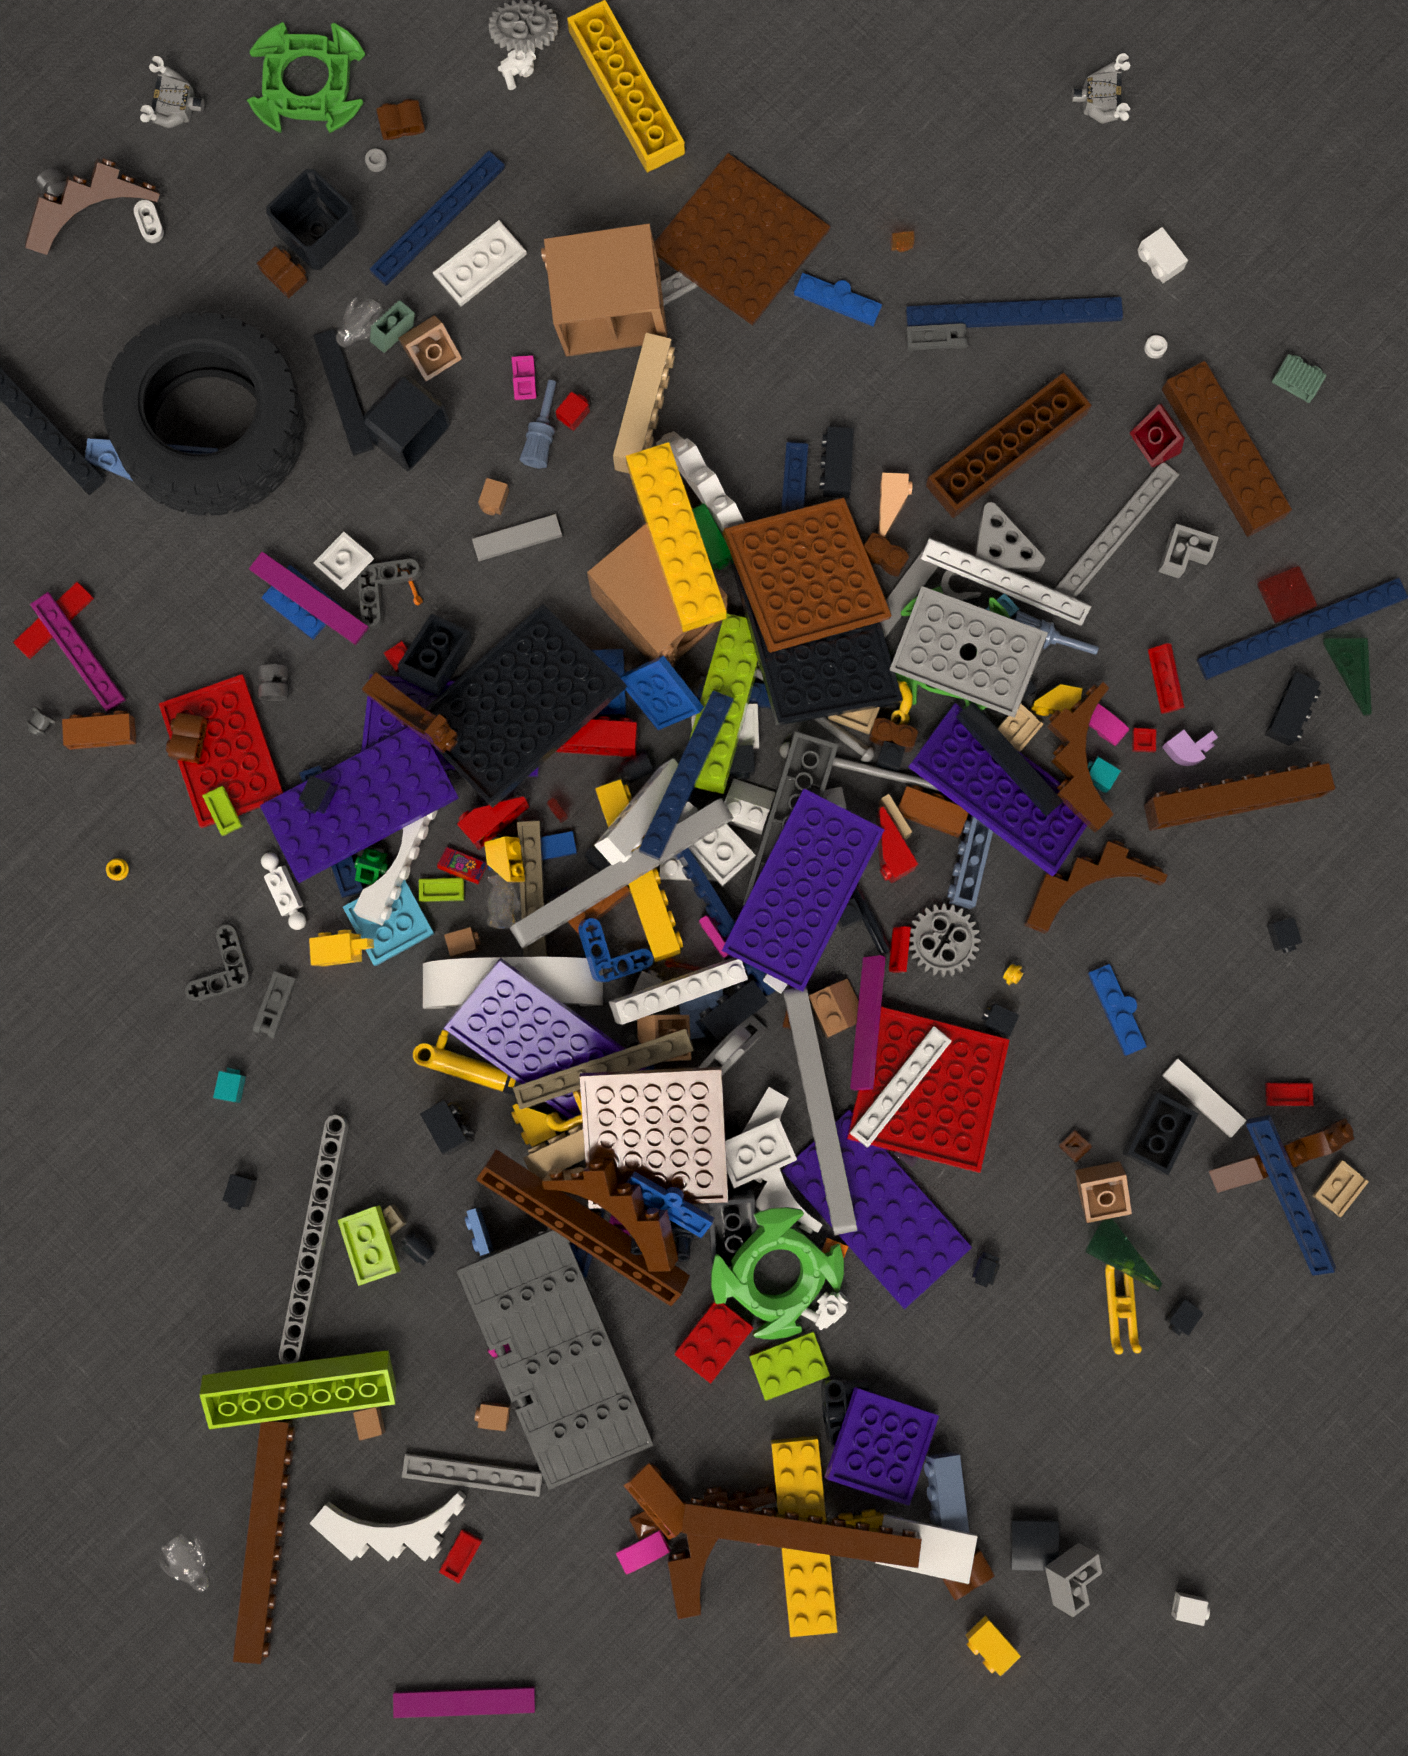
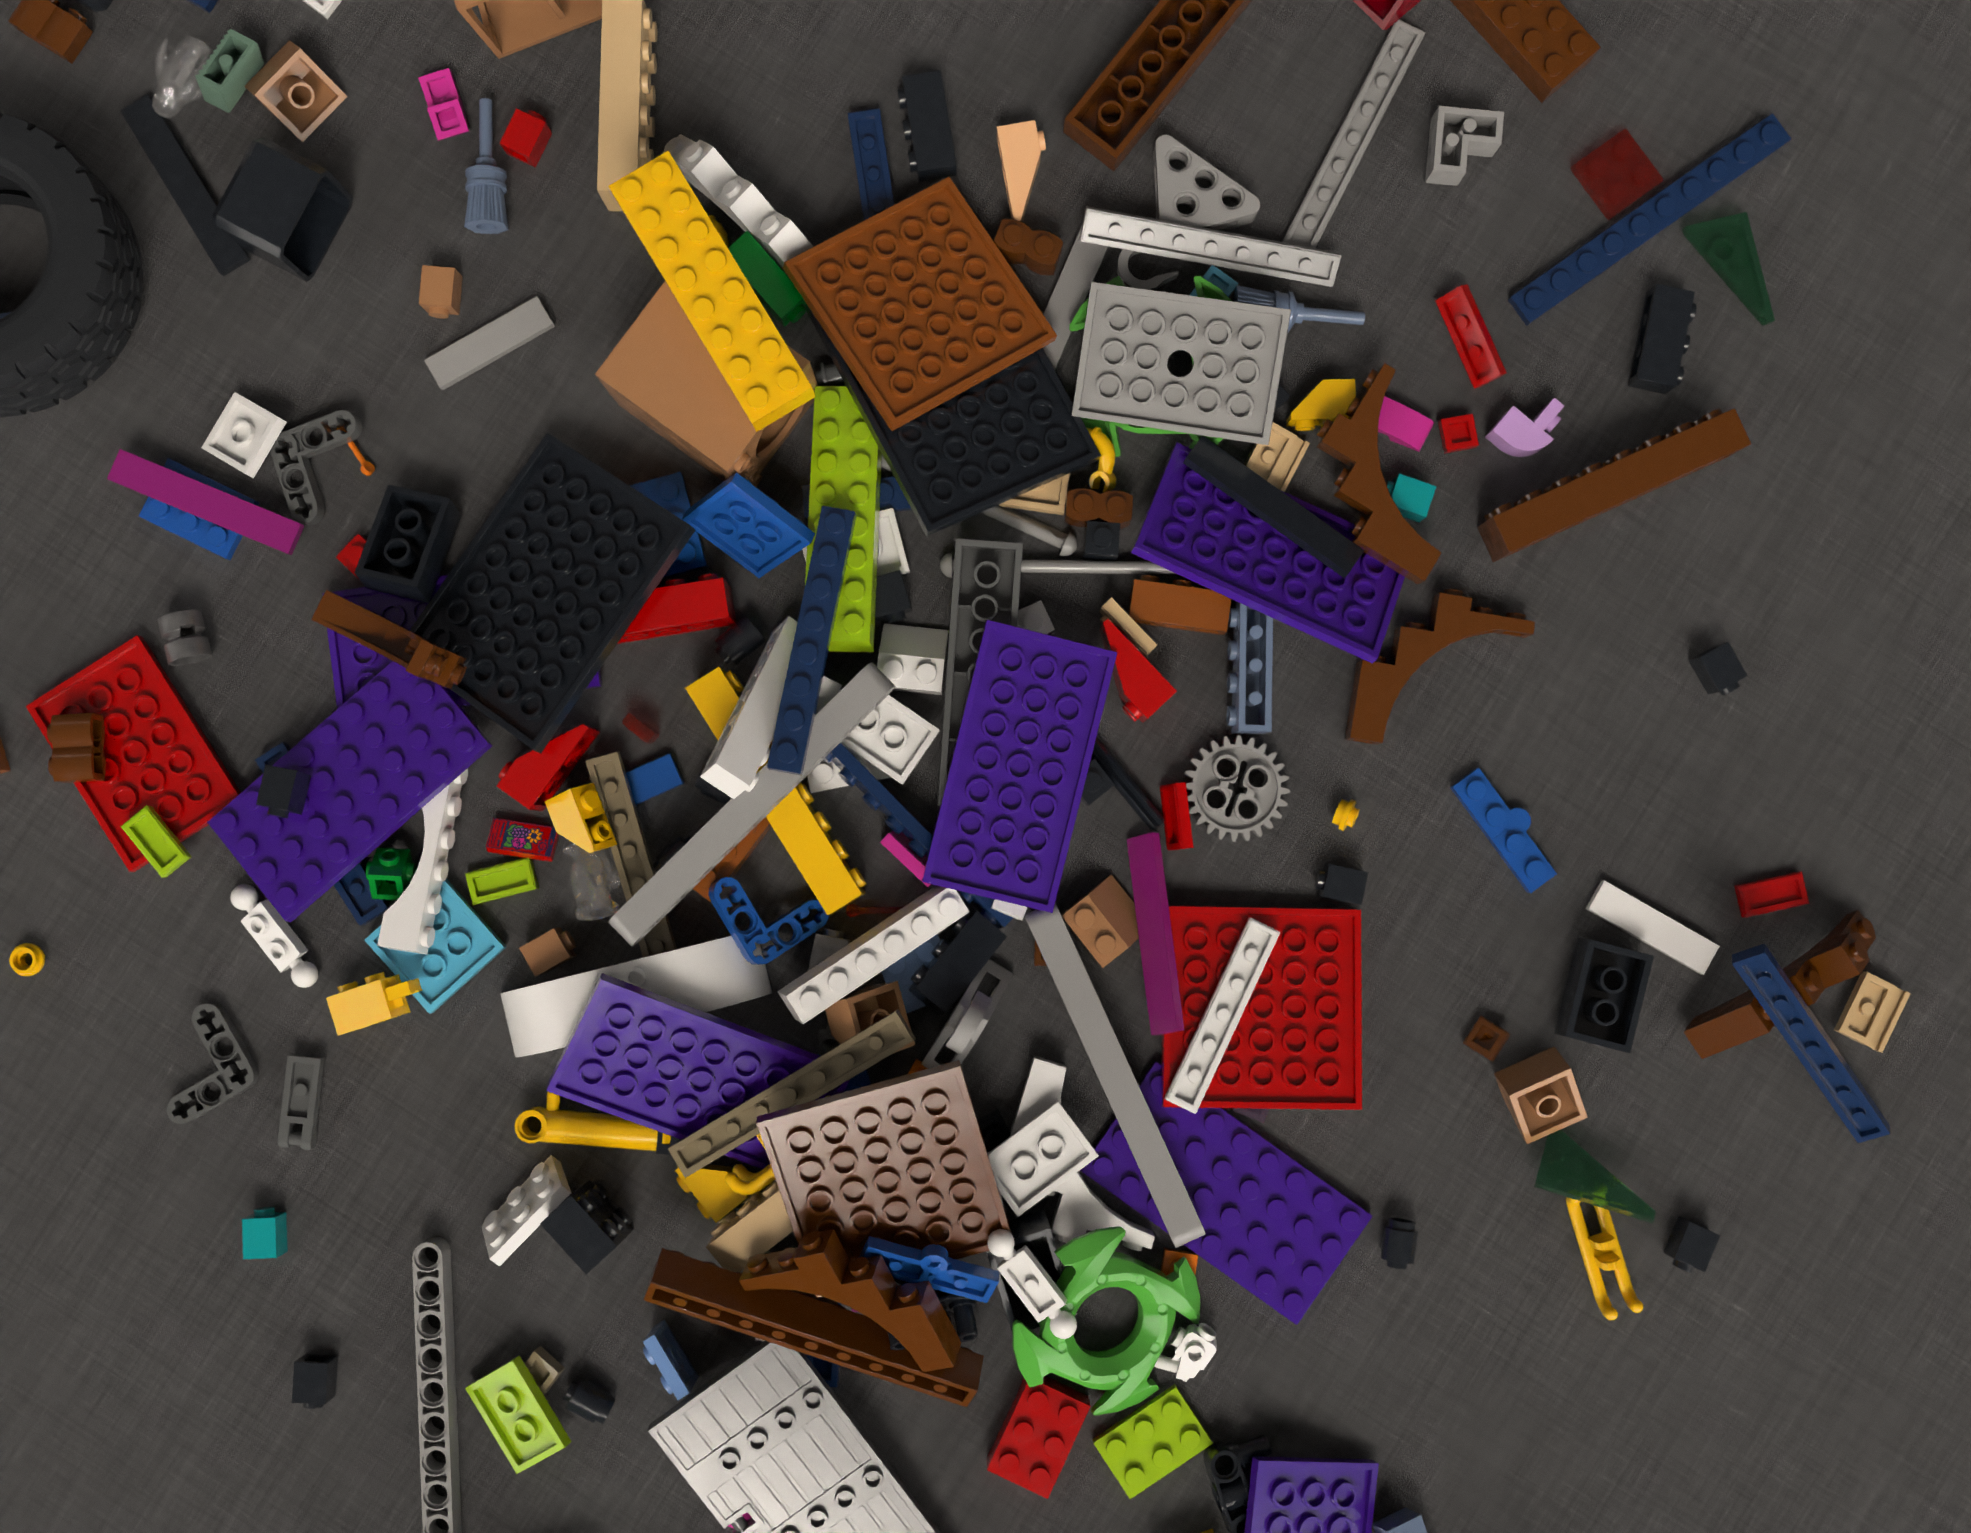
camera: 15 degrees left, 5 degrees up
(406, 1108) = (525, 1209): none -> white plate
(734, 1231) = (1032, 1283): none -> white plate
(735, 608) = (829, 376): none -> dark grey brick

